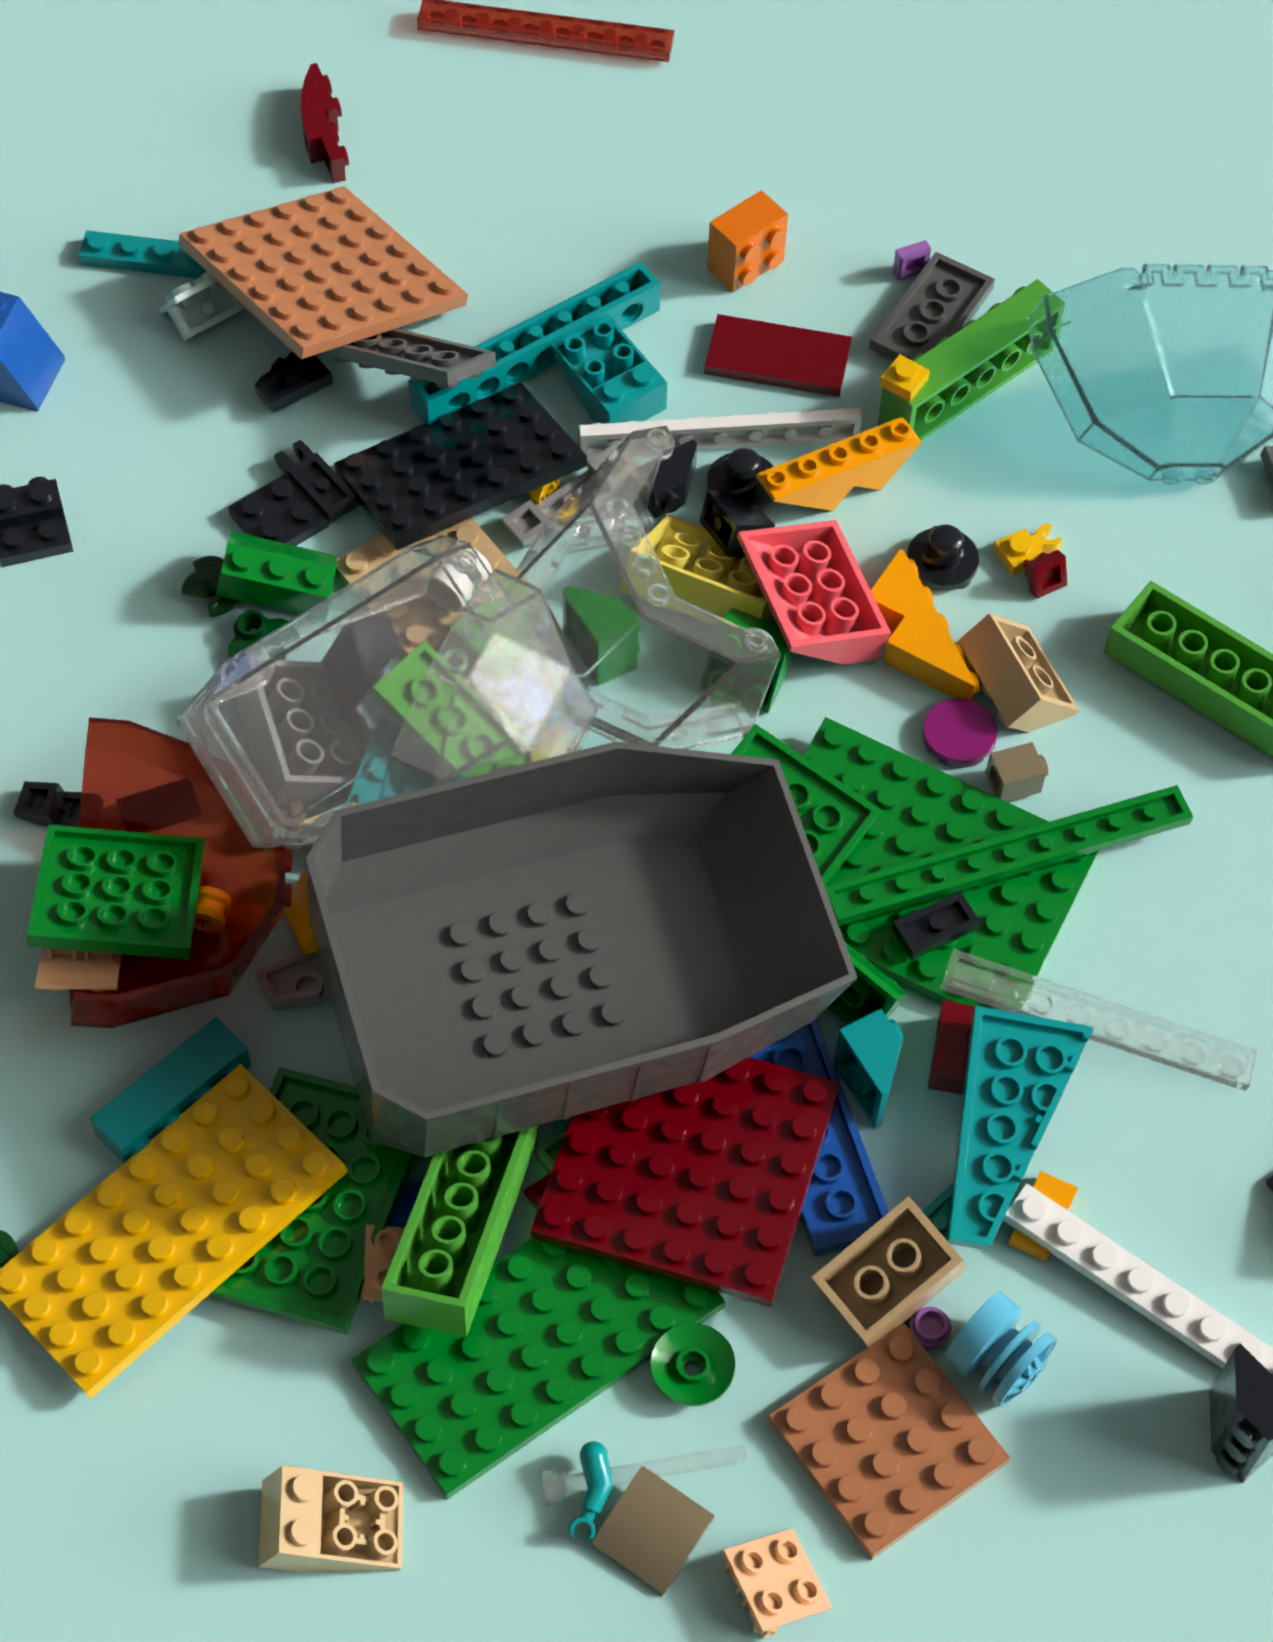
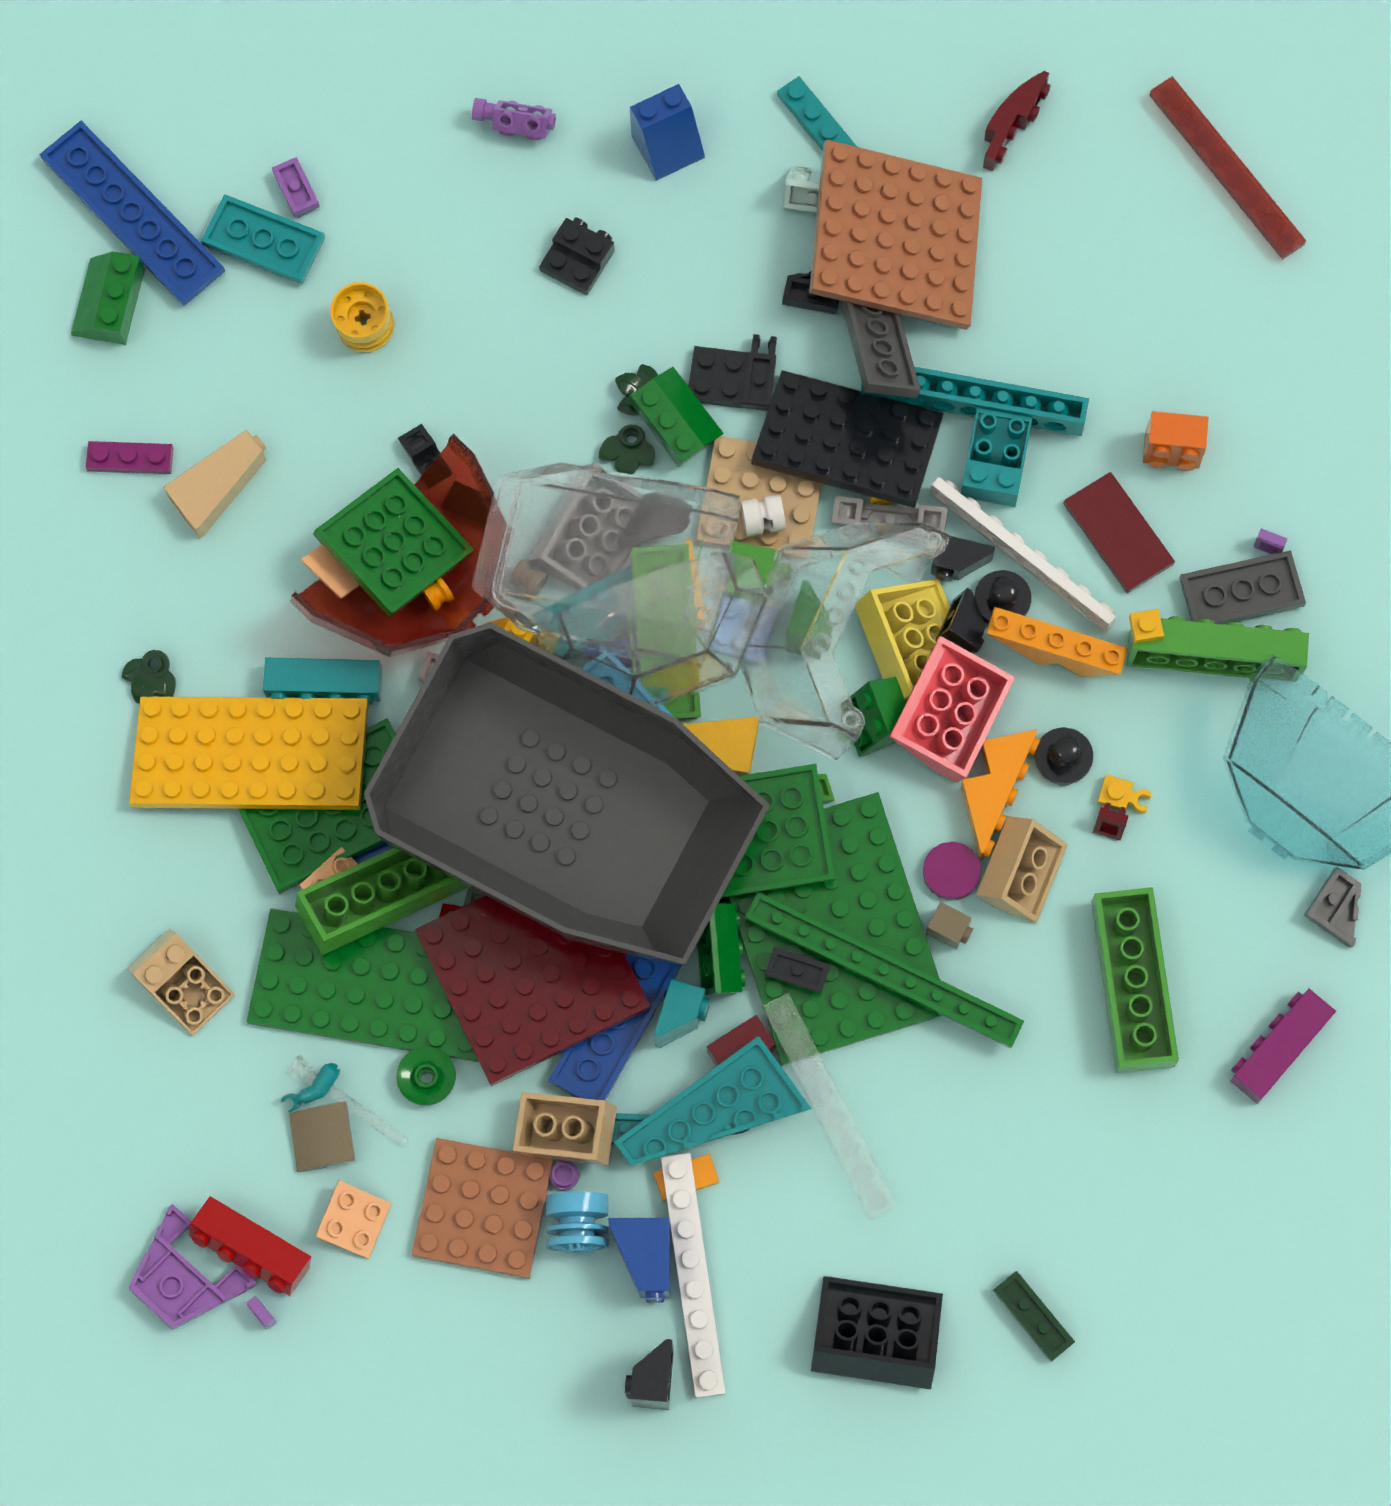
camera: 50 degrees right, 15 degrees up
(1102, 1315) = (646, 1253): none -> blue slope

